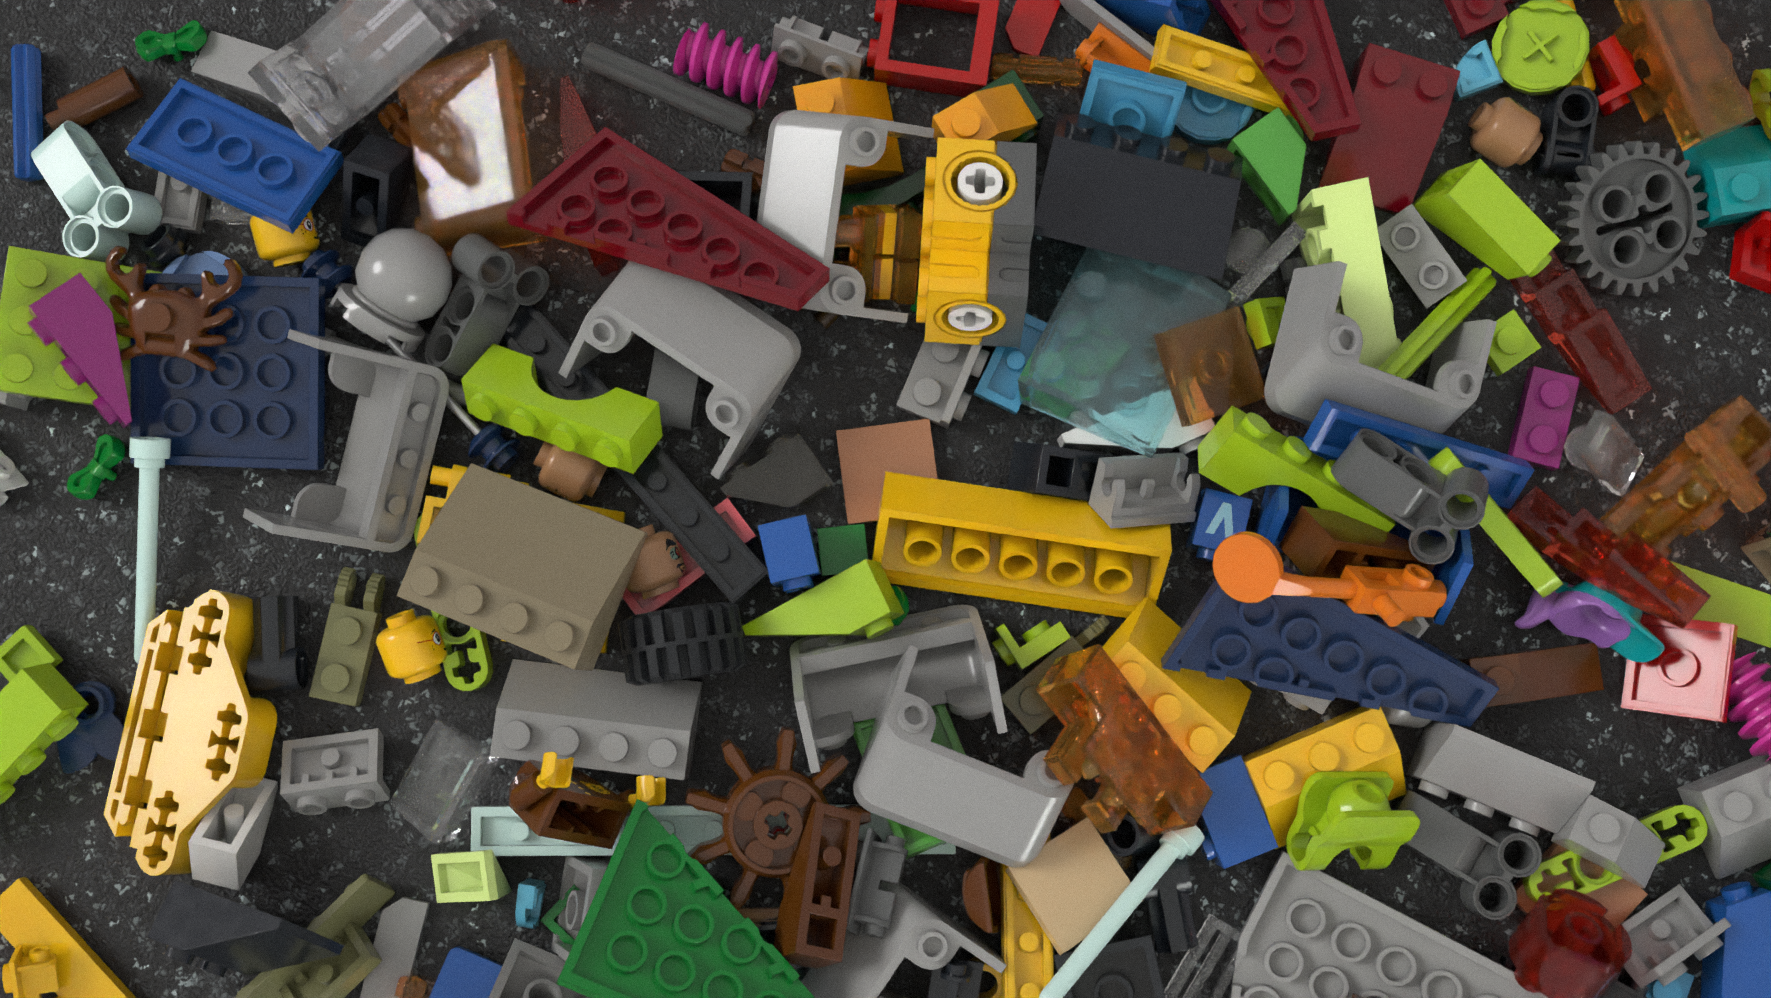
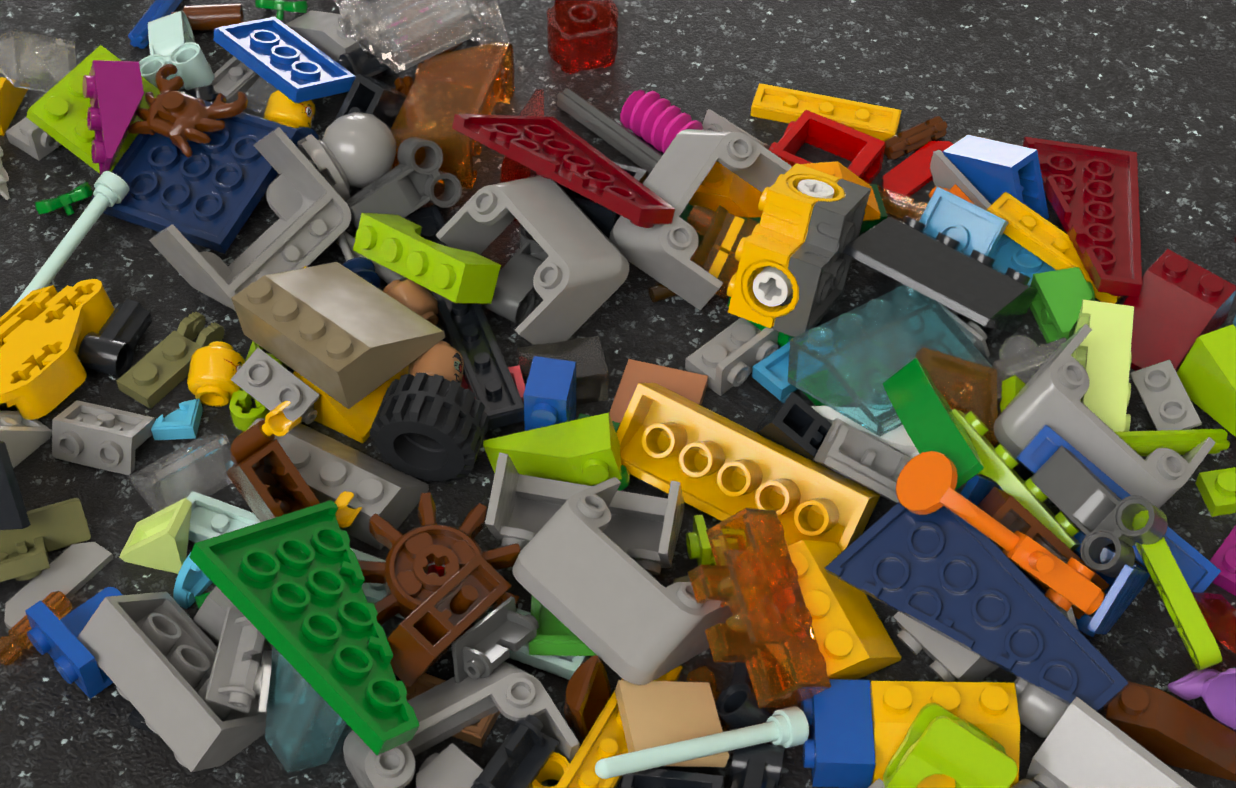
camera: 20 degrees right, 35 degrees down
(404, 715) = (180, 423): none -> medium azure tile
(491, 658) = (274, 384): none -> light grey hinge
(1214, 461) = (930, 419): none -> green slope

